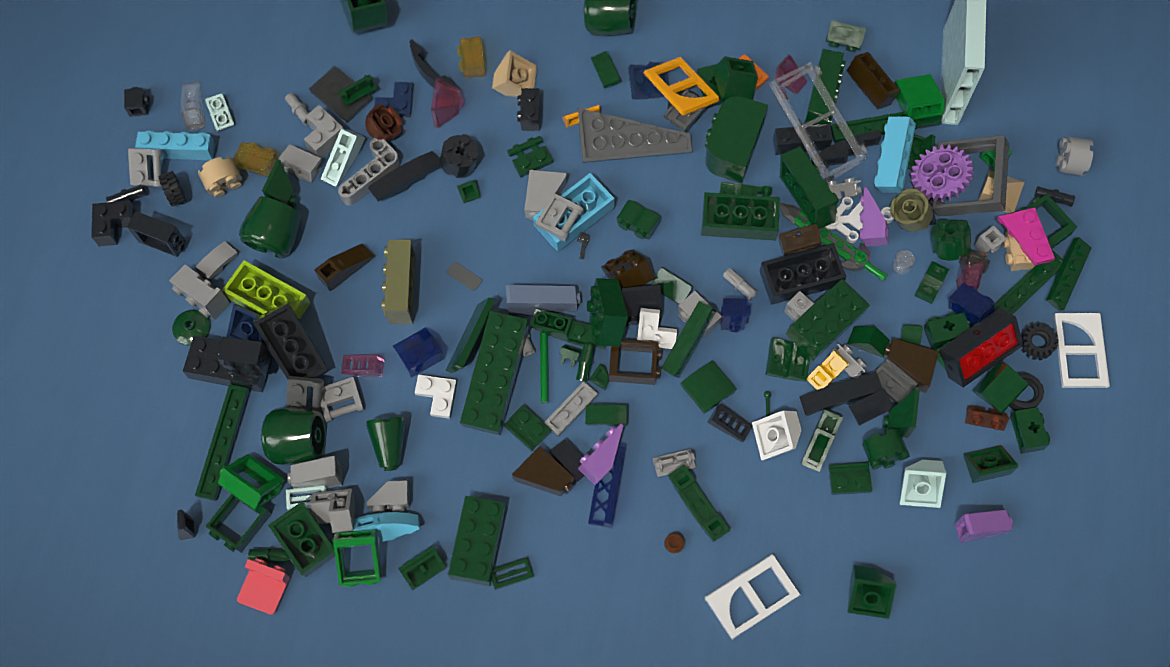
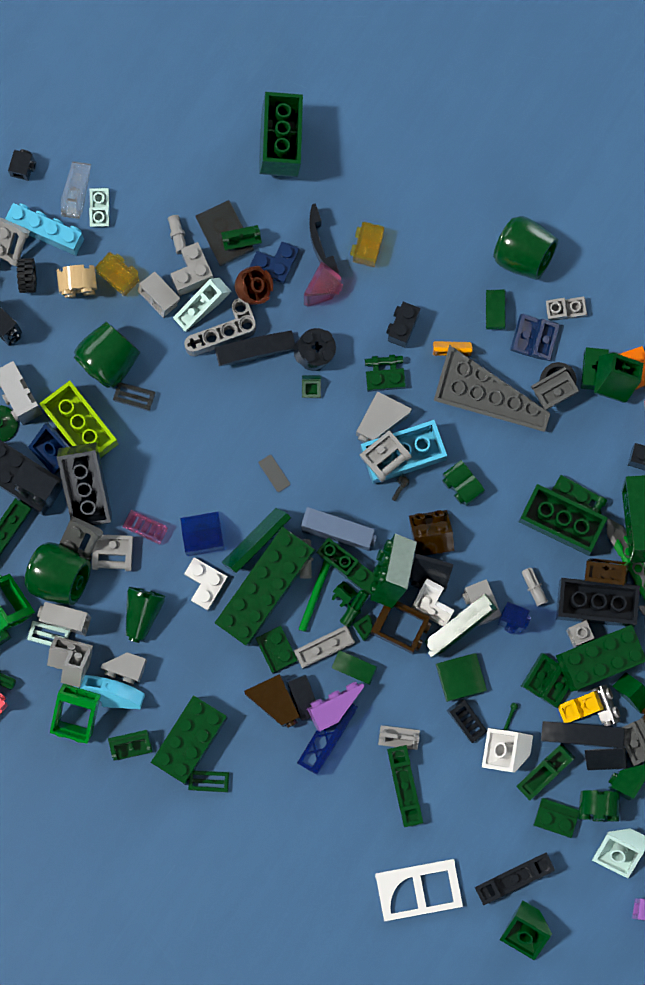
camera: 20 degrees right, 10 degrees up
(214, 261) = (44, 365): light grey slope -> none
(279, 186) = (130, 317): dark green slope -> none
(296, 261) = (131, 403): none -> clear smoke tile
(303, 539) = (32, 676): dark green slope -> none
(342, 266) = (163, 419): dark brown slope -> none
(399, 281) = (209, 459): olive brick -> none
(513, 75) = (403, 282): tan slope -> none
(665, 49) = (566, 308): none -> light grey slope
(672, 286) = (467, 564): slope -> none
(674, 543) = (368, 813): reddish brown plate -> none
(682, 104) = (553, 383): light orange window -> none
(734, 137) = (591, 435): dark green brick -> none
(837, 548) = (514, 878): none -> black slope

